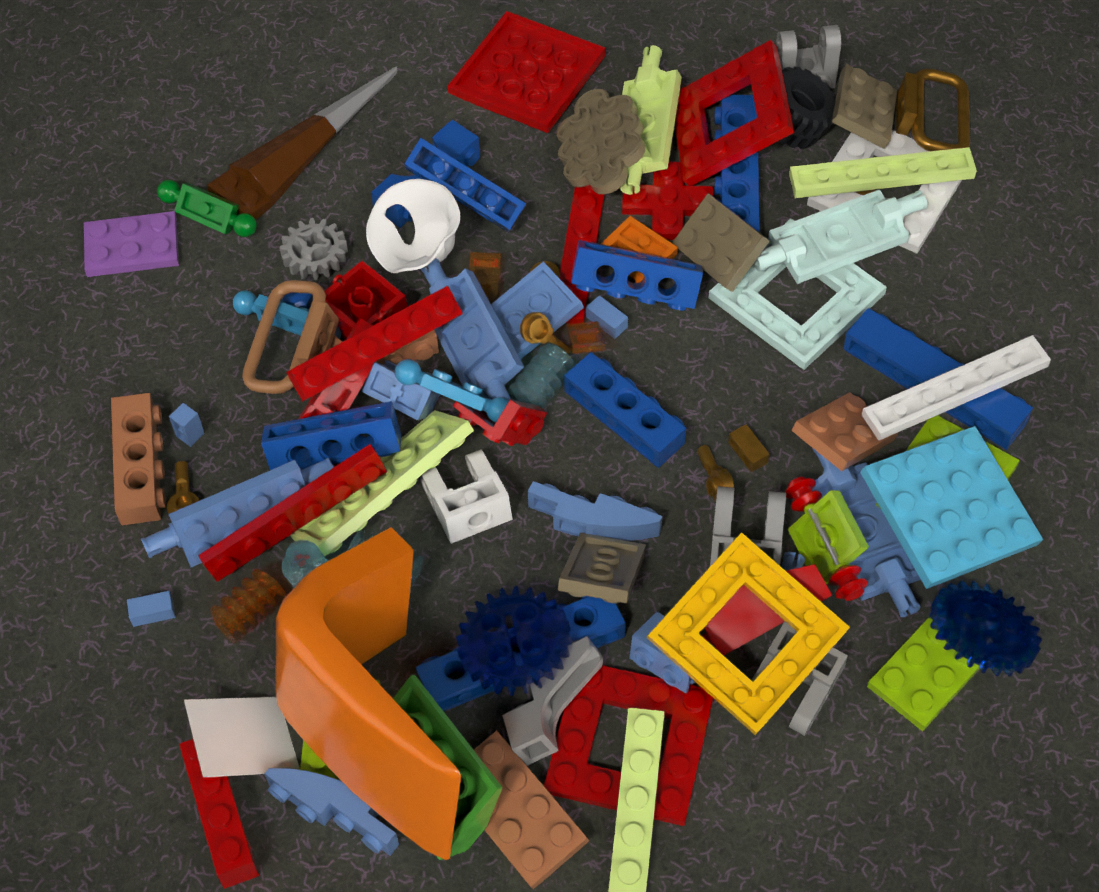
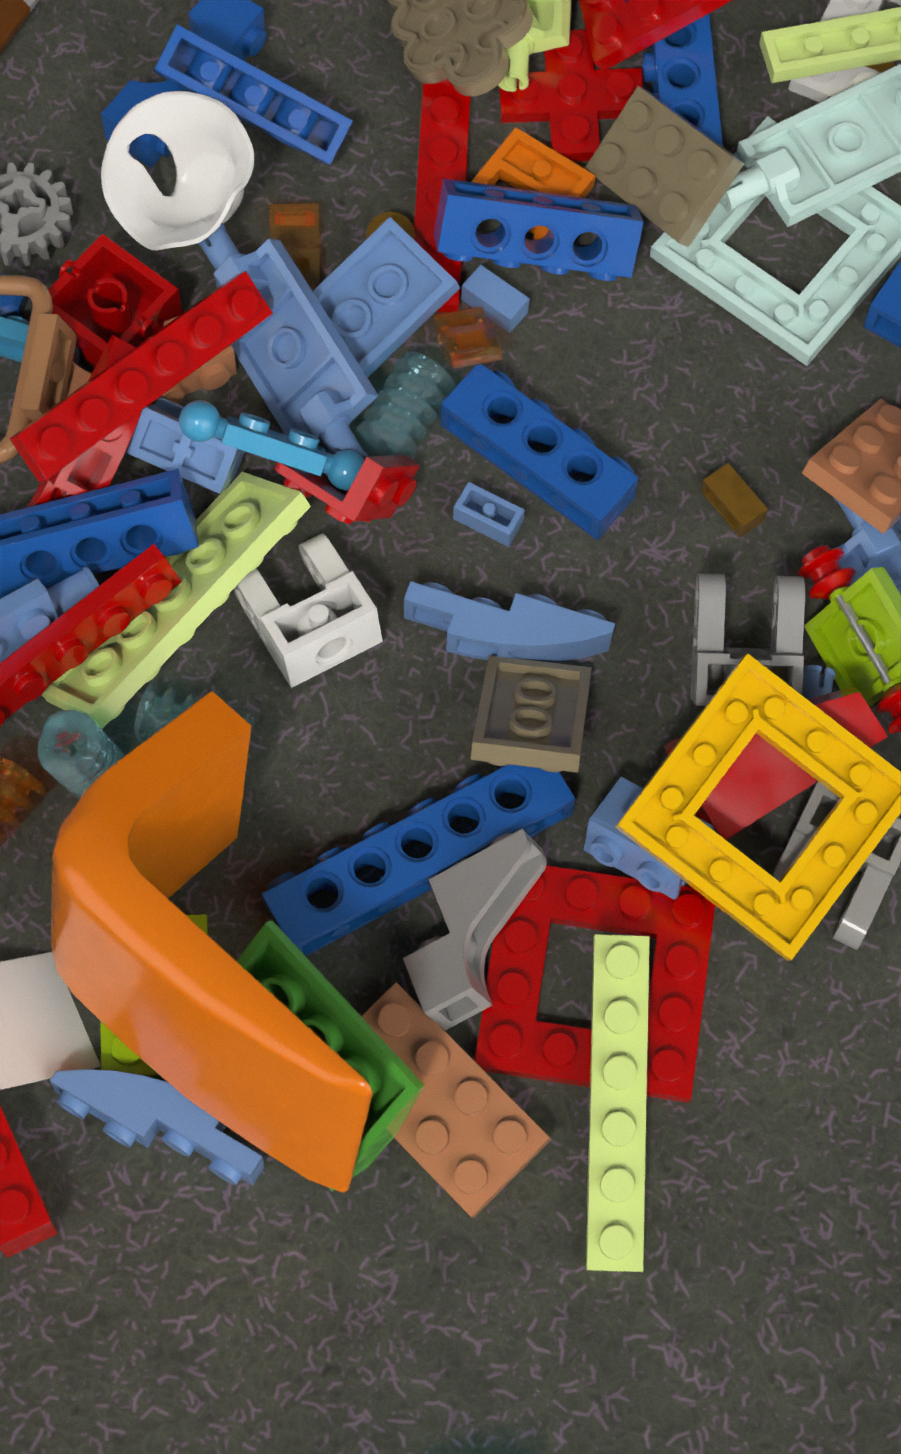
camera: 10 degrees left, 10 degrees up
(481, 648) = (457, 827): clear blue gear -> none
(537, 329) = (392, 331): pearl gold plate -> none
(589, 446) = (488, 514): none -> medium blue piece
(716, 474) = (693, 553): pearl gold plate -> none

